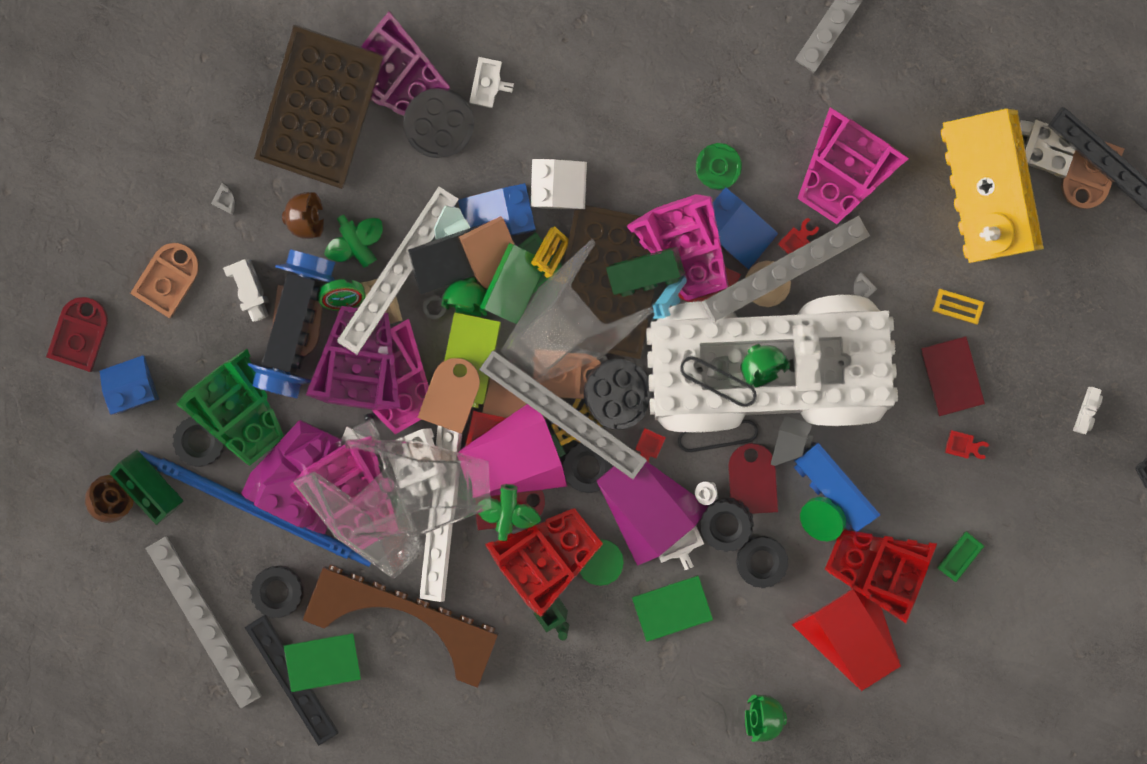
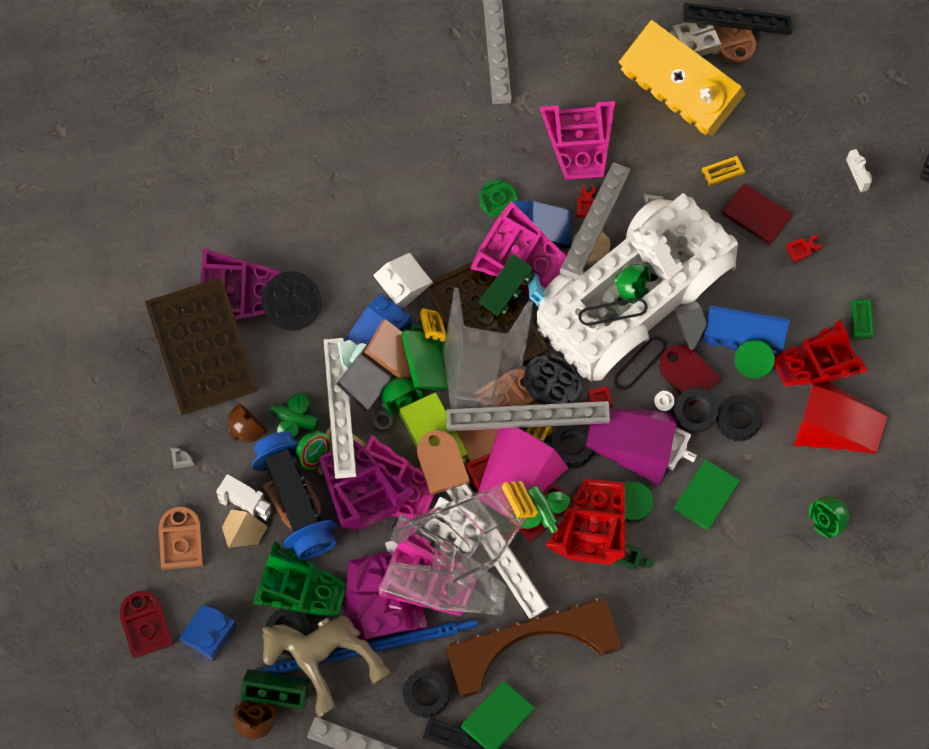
camera: 45 degrees left, 20 degrees down
(207, 482) = (316, 648): none -> dark tan animal
(225, 314) = (243, 529): none -> tan slope
(488, 83) = (304, 254): white plate -> none
(491, 493) = (522, 498): none -> yellow tile

